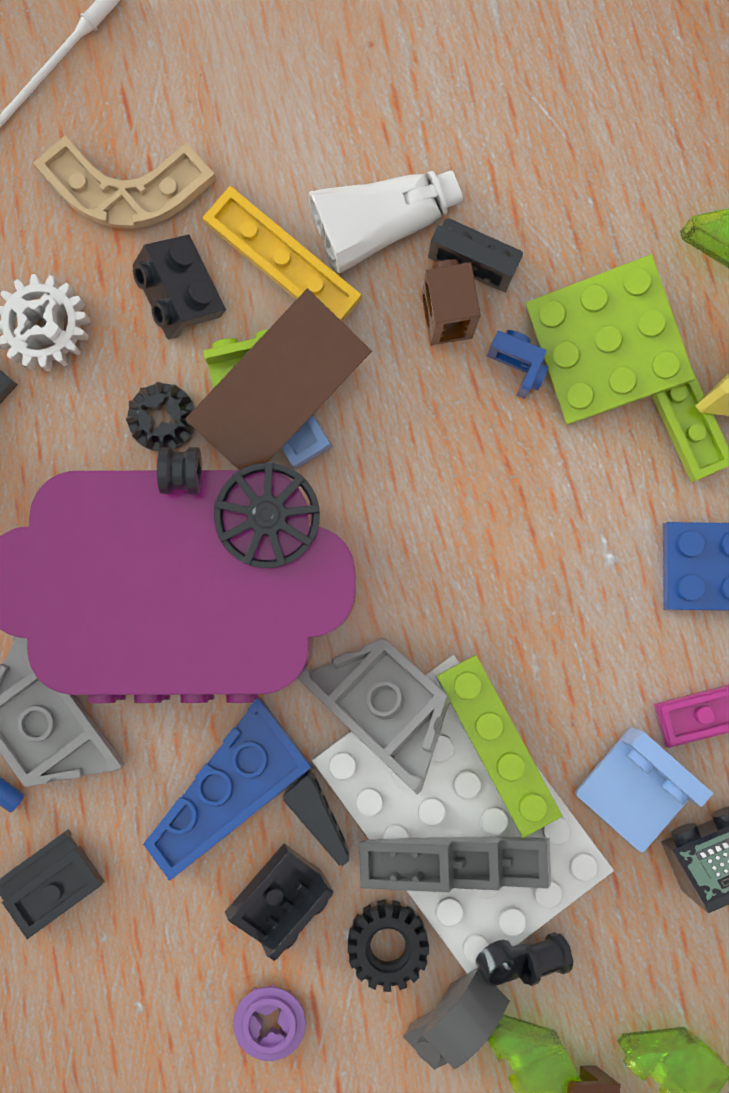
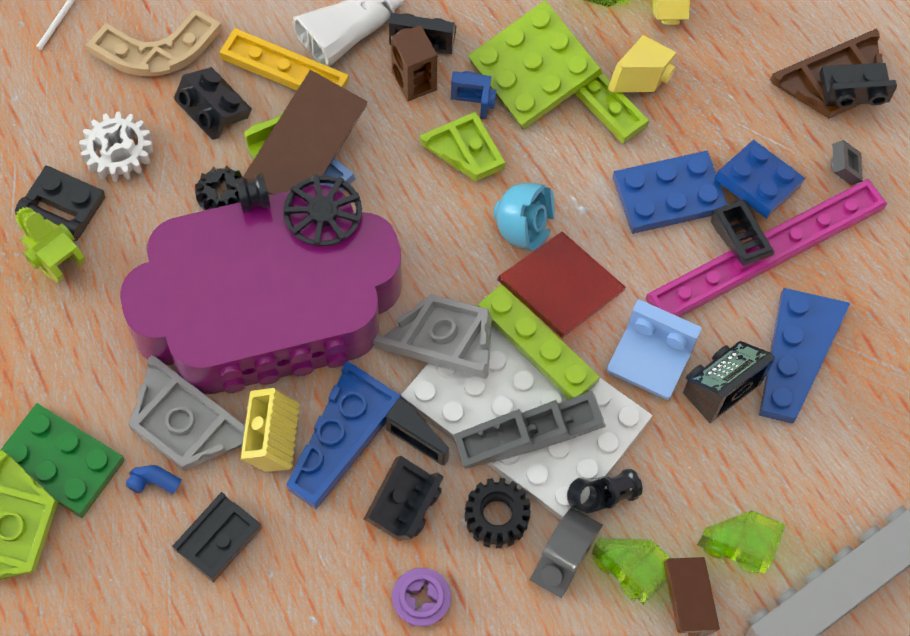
camera: 20 degrees left, 20 degrees down
(138, 773) = (270, 430): none -> light yellow brick
(486, 437) = (465, 147): none -> lime wing
(531, 561) = (524, 214): none -> medium azure cylinder
(552, 668) = (561, 284): none -> clear red piece

